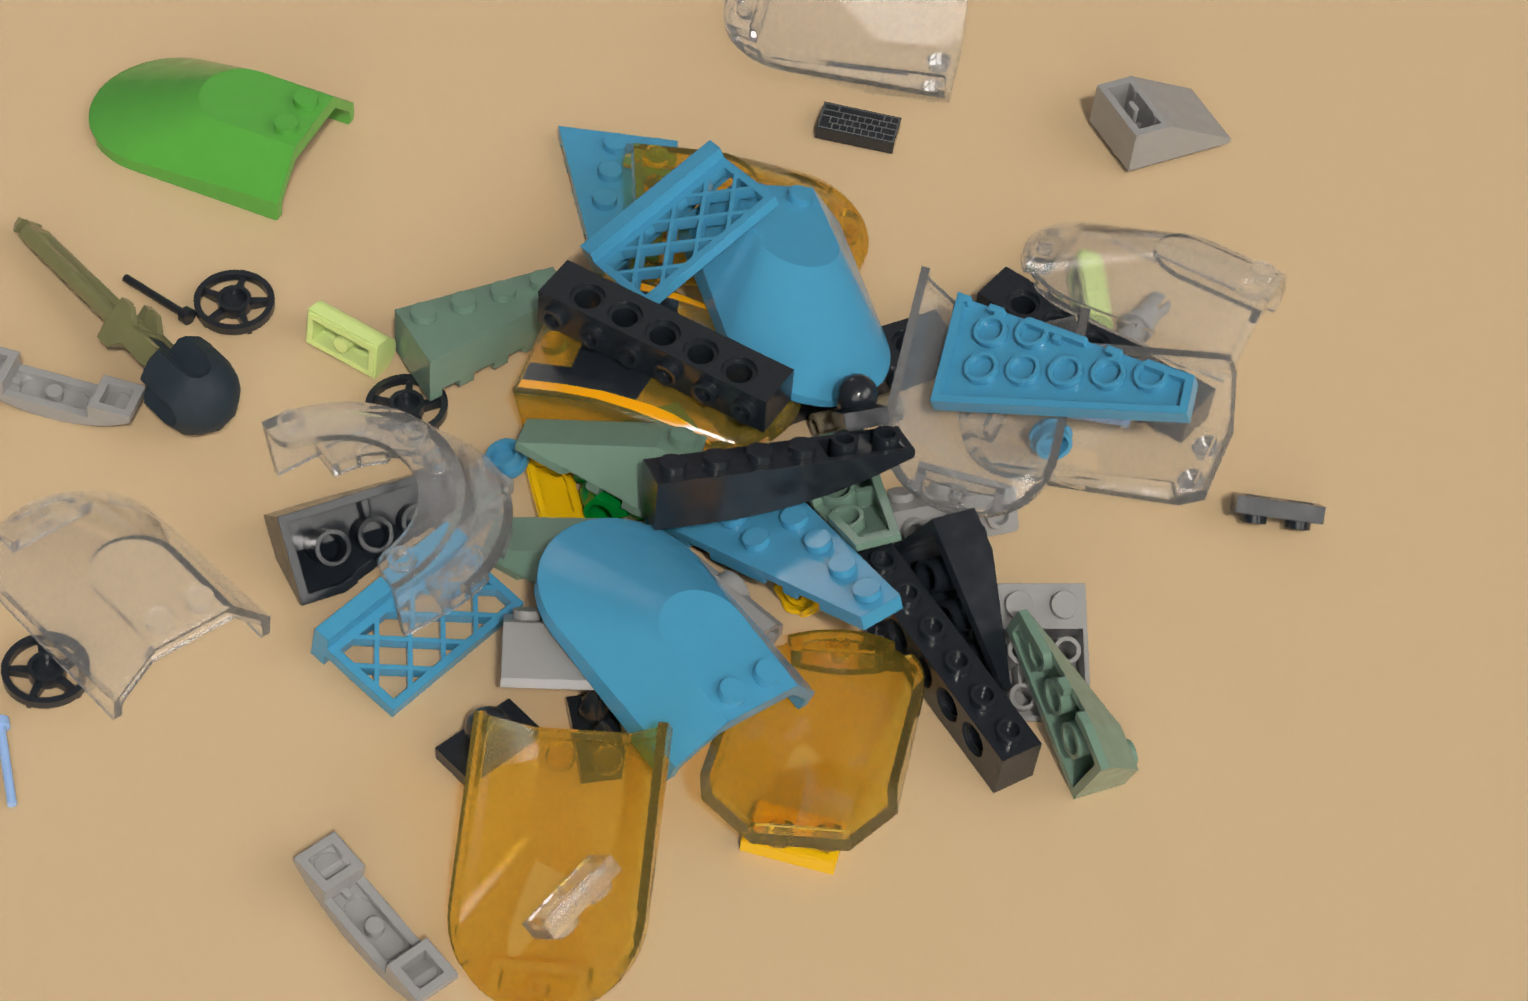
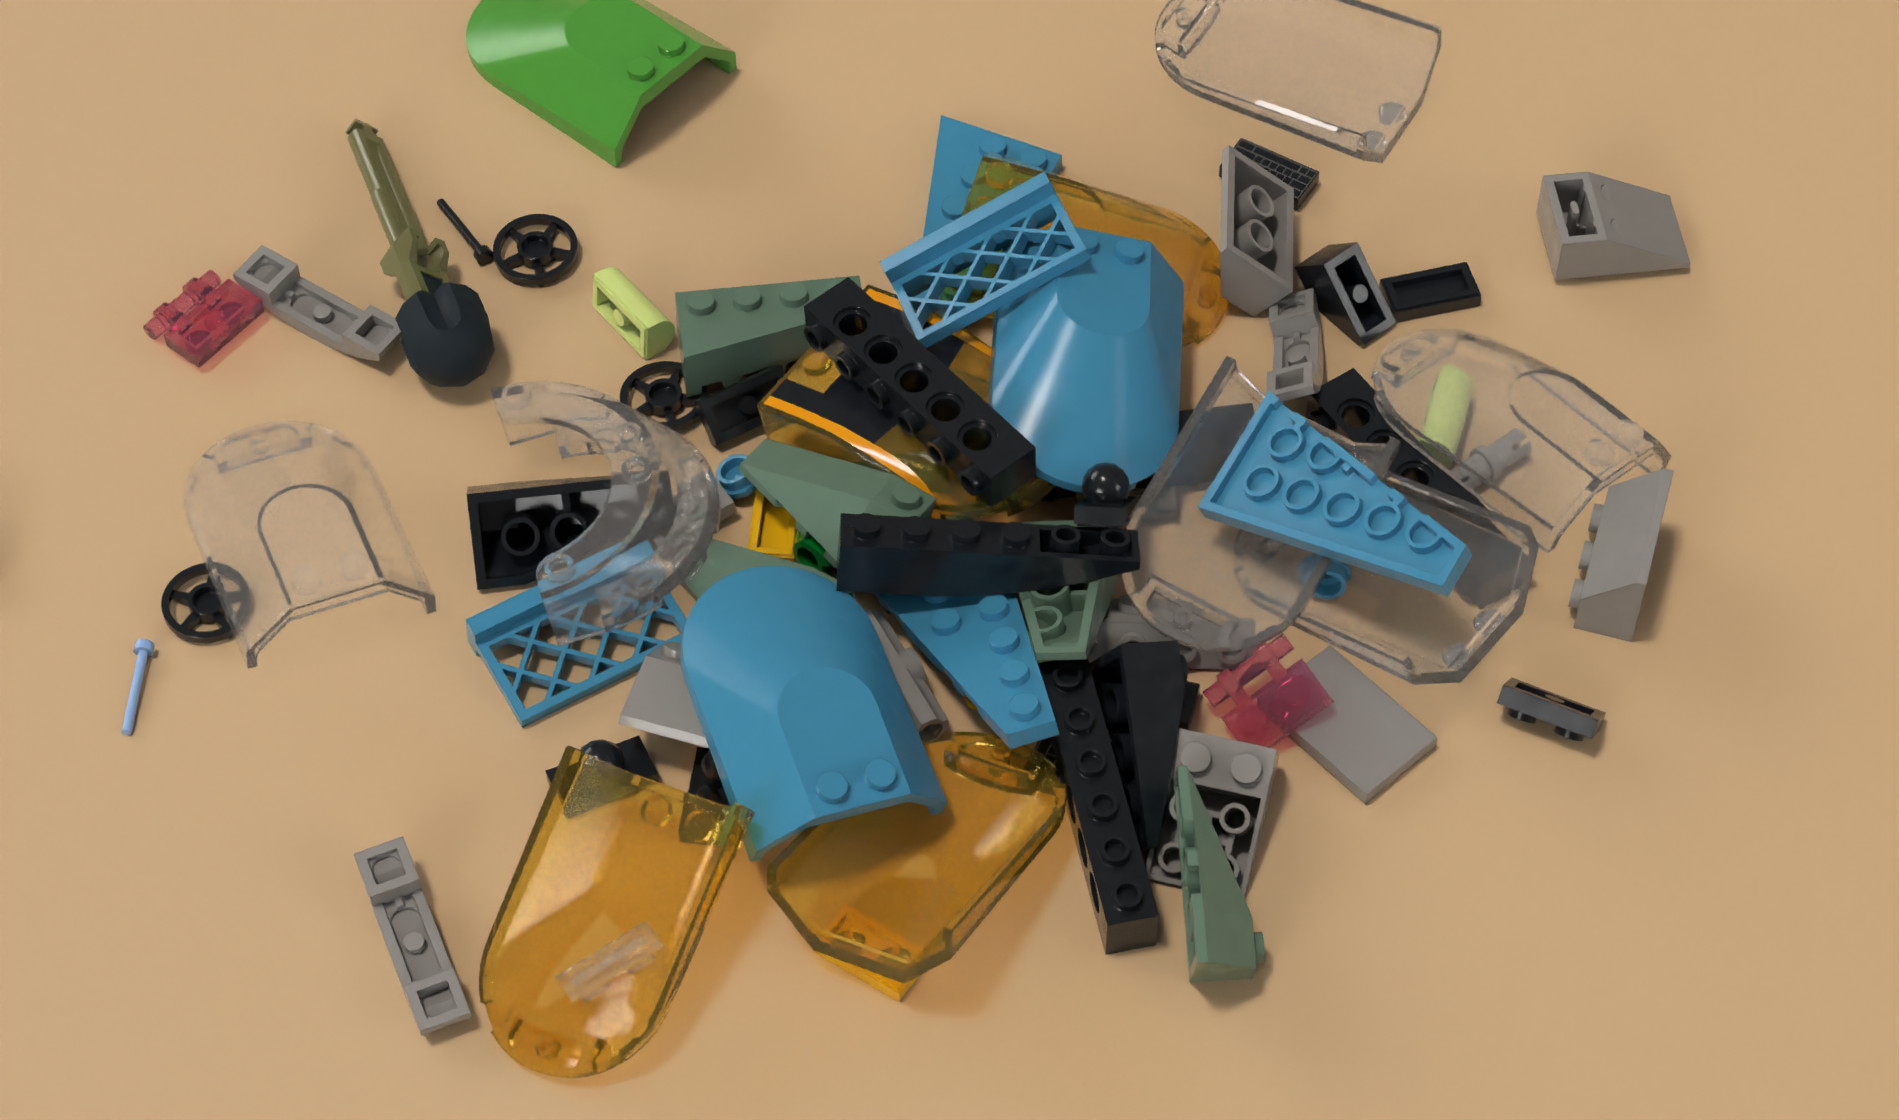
camera: 25 degrees right, 5 degrees up
(484, 397) = (734, 408): none -> black plate
(875, 175) = (1254, 234): none -> light grey slope
(948, 263) = (1297, 346): none -> light grey slope
(966, 208) = (1347, 291): none -> black slope
(1031, 199) = (1431, 292): none -> black tile
(1058, 553) = (1276, 707): none -> clear pink plate
(1115, 557) = (1364, 733): none -> light grey tile
(1286, 373) = (1620, 556): none -> light grey slope

